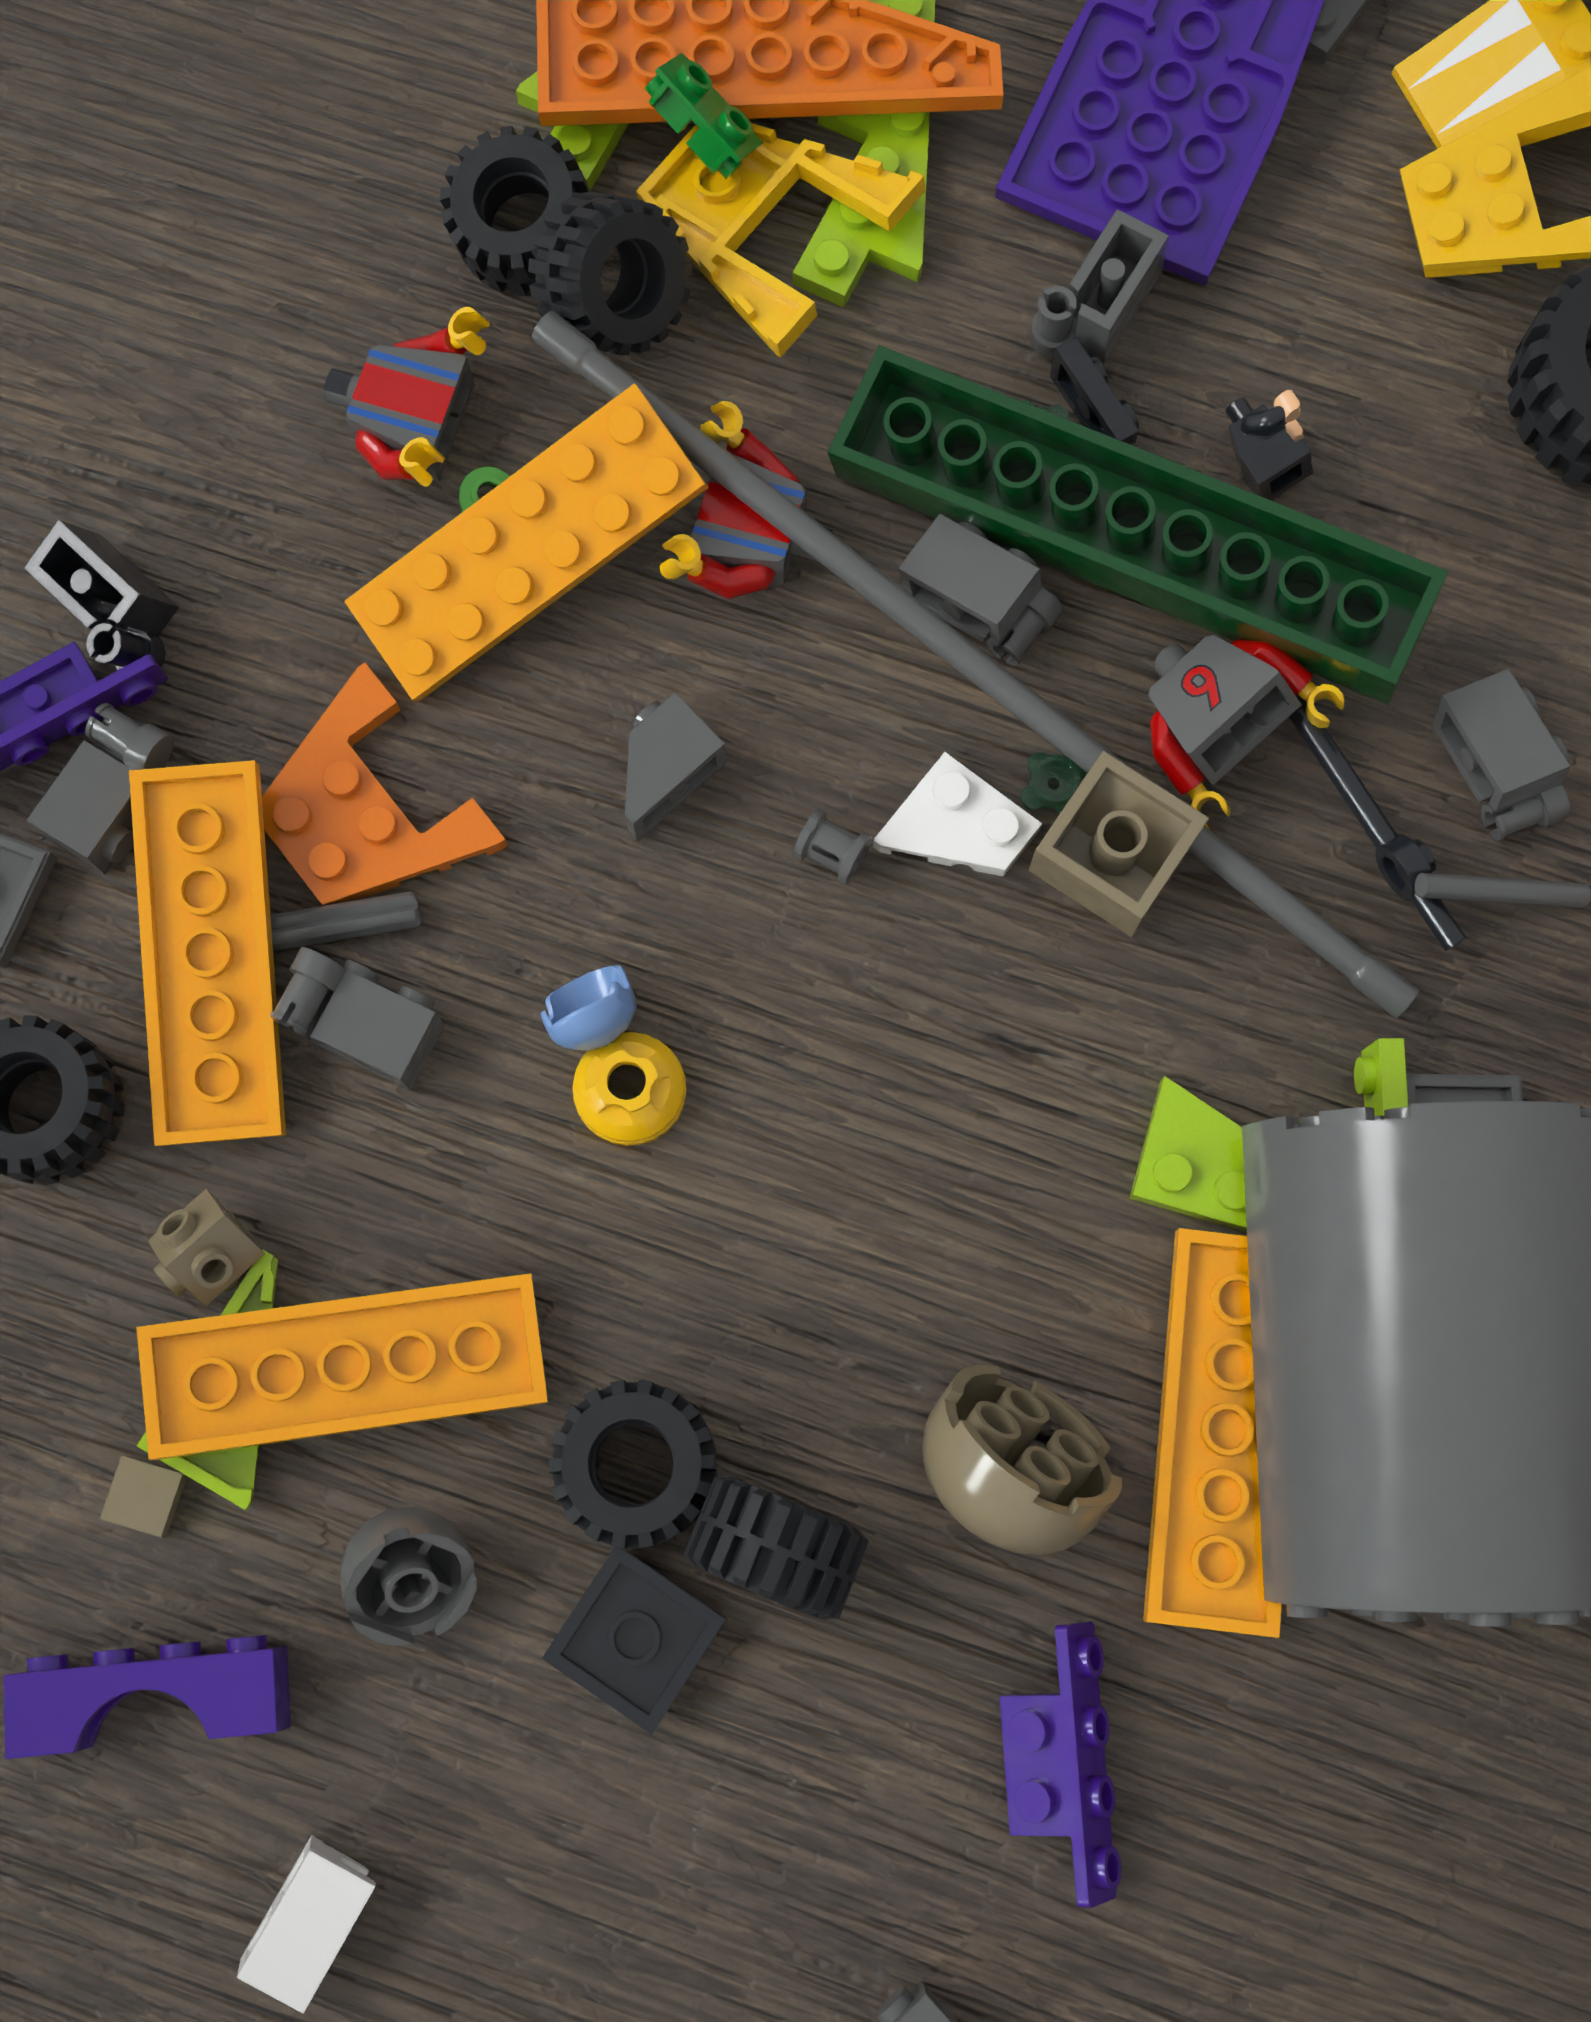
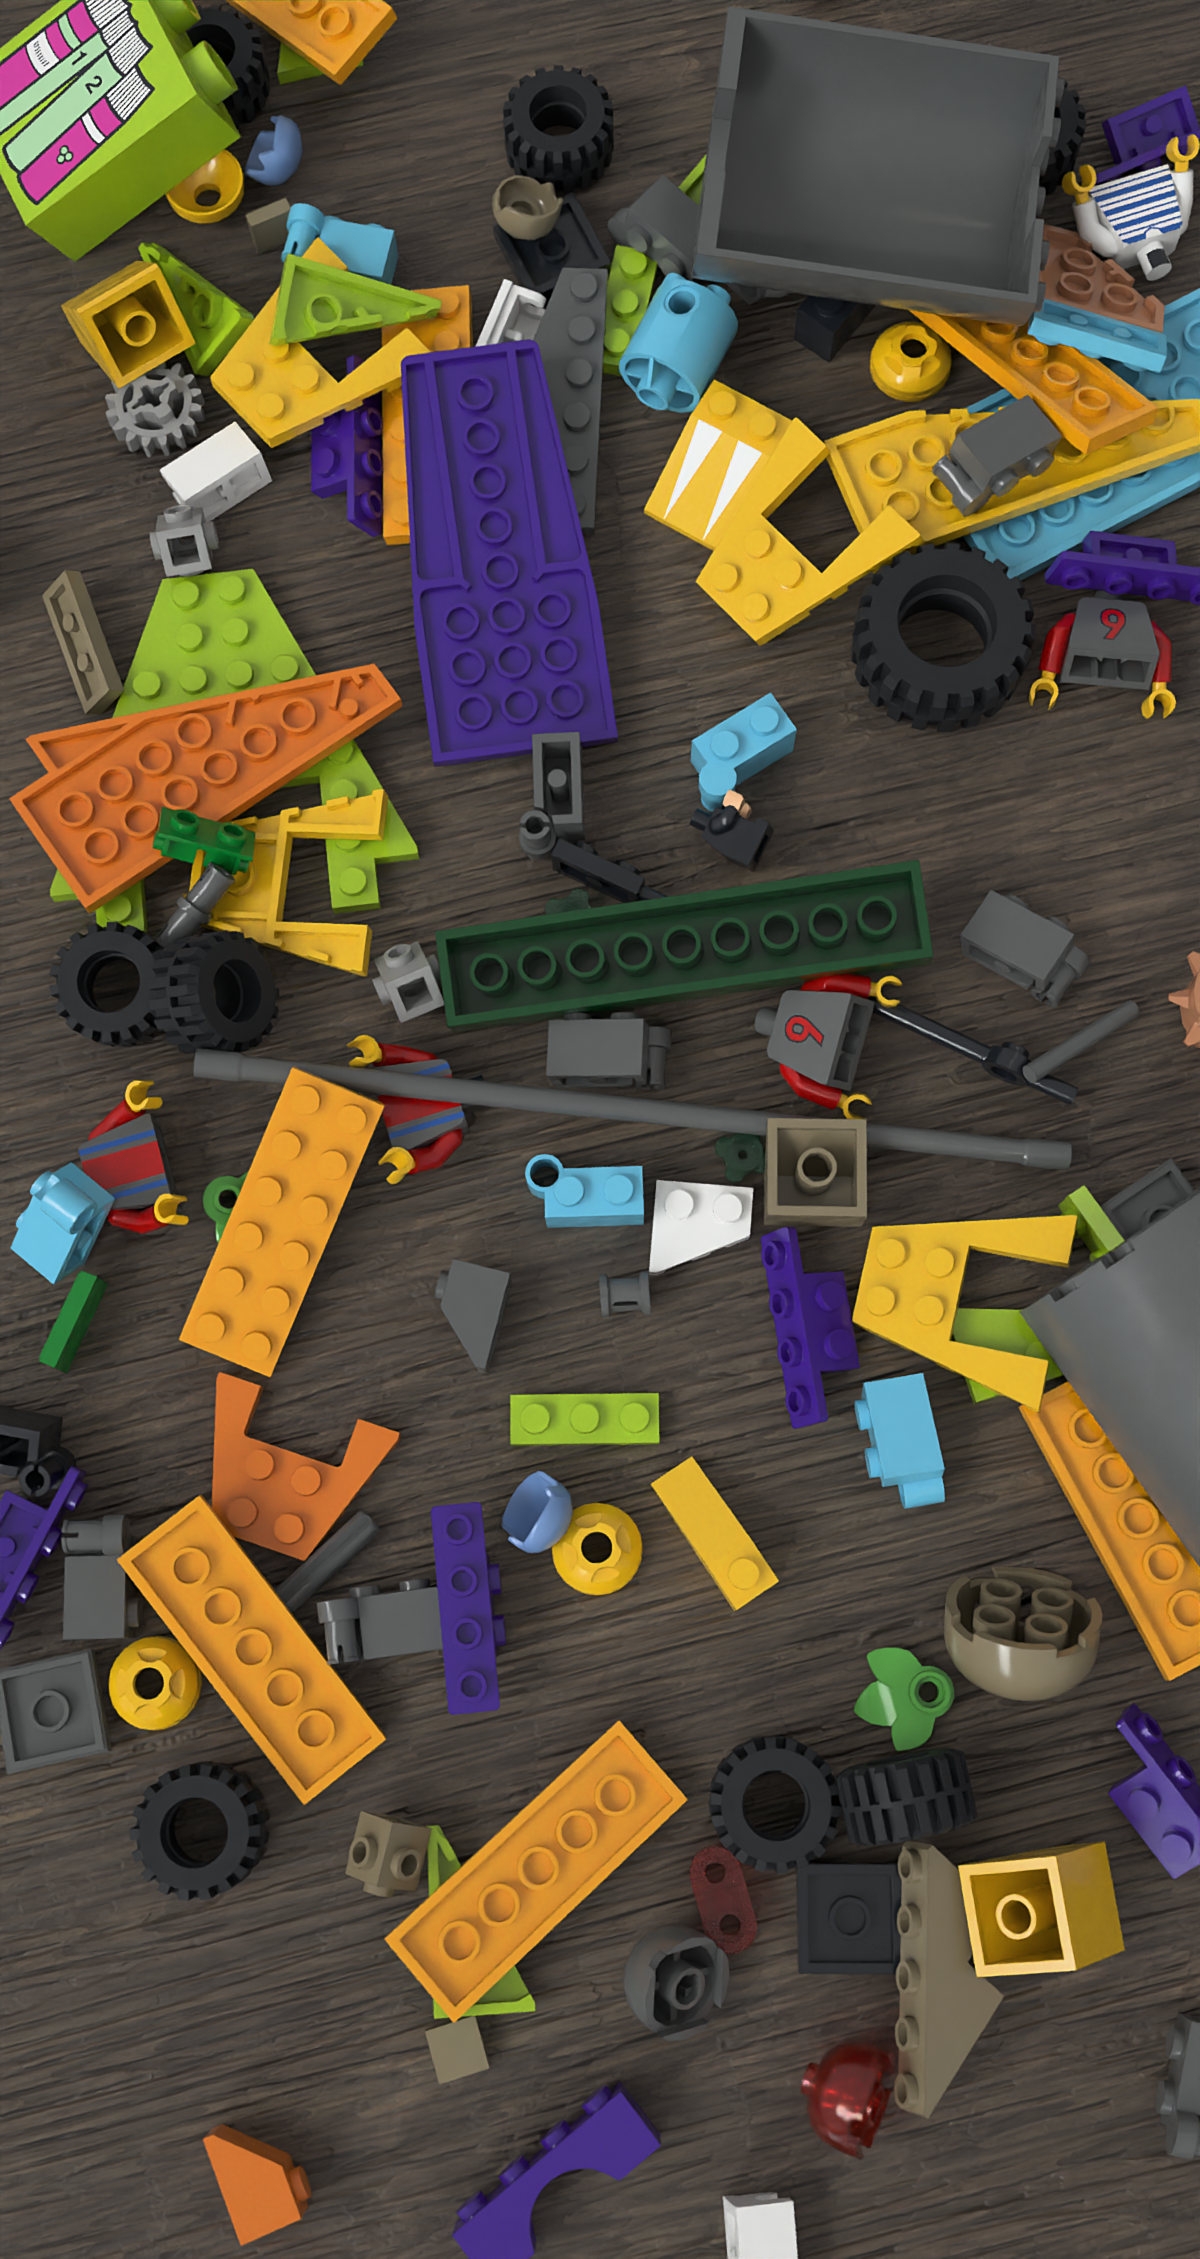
camera: 30 degrees left, 0 degrees up
(107, 954) = (180, 1687): none -> yellow piece
(253, 520) = (73, 1321): none -> green tile
(305, 409) = (61, 1222): none -> medium azure hinge
(452, 1054) = (467, 1608): none -> dark purple bracket
(505, 1819) = (848, 2095): none -> clear red cylinder
(514, 1528) = (722, 1899): none -> clear red plate
(660, 177) = (196, 905): none -> dark grey pin
(676, 1779) = (940, 1994): none -> dark tan slope
(705, 949) = (584, 1419): none -> lime plate
(759, 1152) = (714, 1533): none -> yellow slope
(810, 404) = (408, 981): none -> light grey brick
(838, 1445) = (896, 1699): none -> bright green plate
(841, 1765) = (1041, 1910): none -> yellow slope
(863, 720) = (589, 1194): none -> medium azure hinge
(1008, 1003) = (810, 1326): none -> dark purple bracket
(1026, 1179) = (902, 1438): none -> medium azure hinge
(1151, 1030) = (916, 1284): none -> yellow wing
(1336, 363) = (741, 748): none -> medium azure hinge

